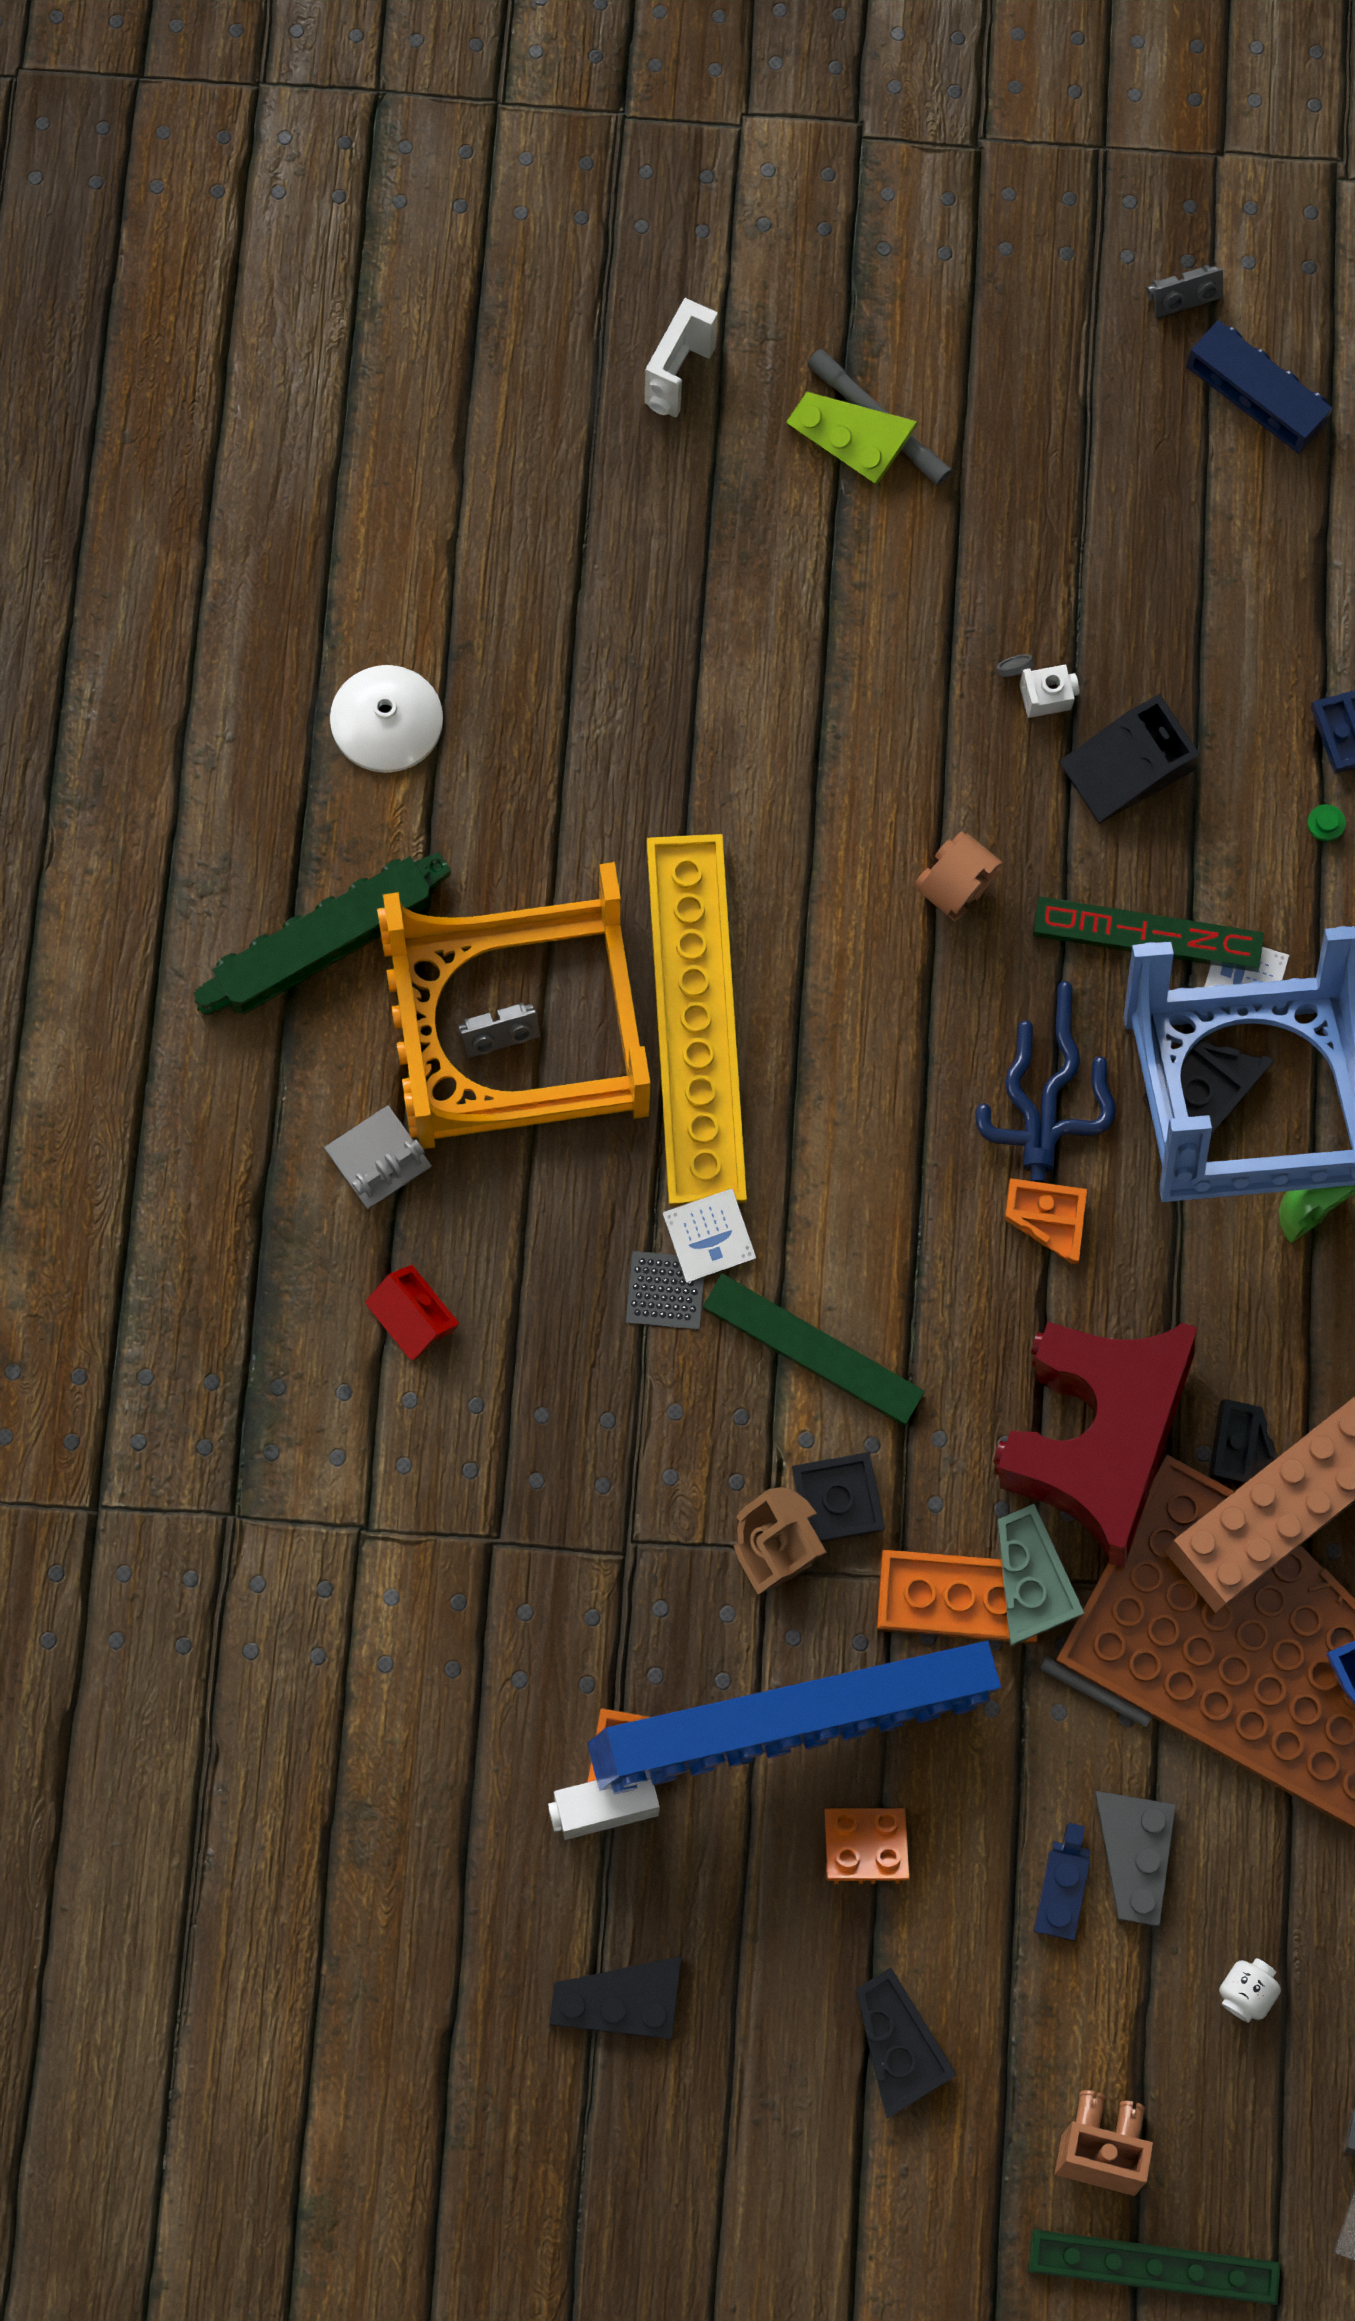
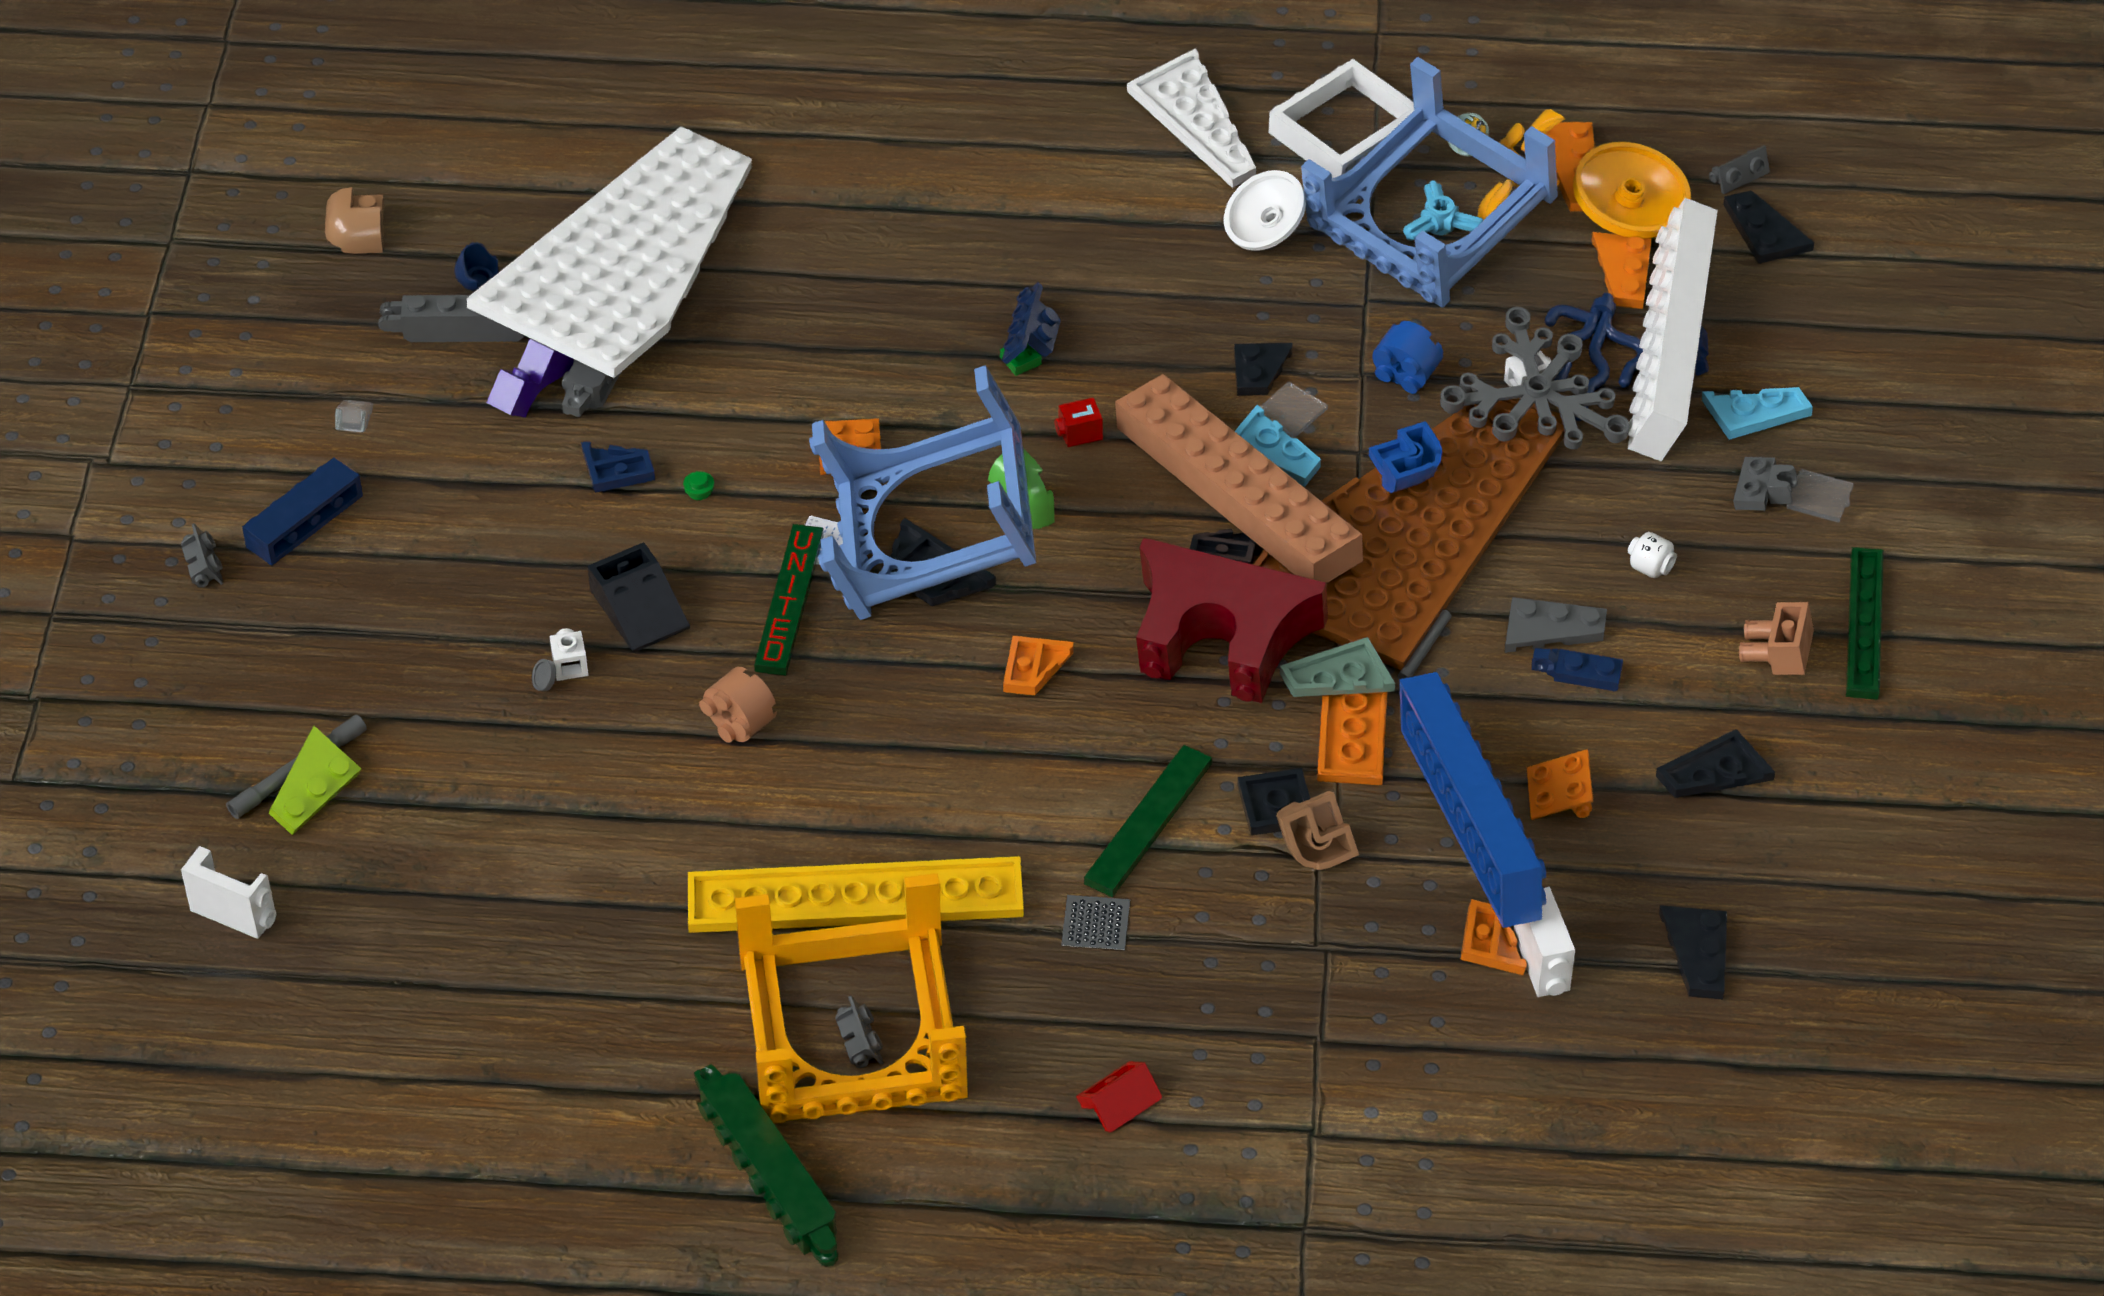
camera: 85 degrees left, 25 degrees down
(378, 1156) = (976, 1121): light grey hinge -> none
(389, 739) = (556, 1139): white dish -> none
(709, 1235) = (1050, 885): white sticker -> none
(1041, 1138) = (955, 667): dark blue plant -> none

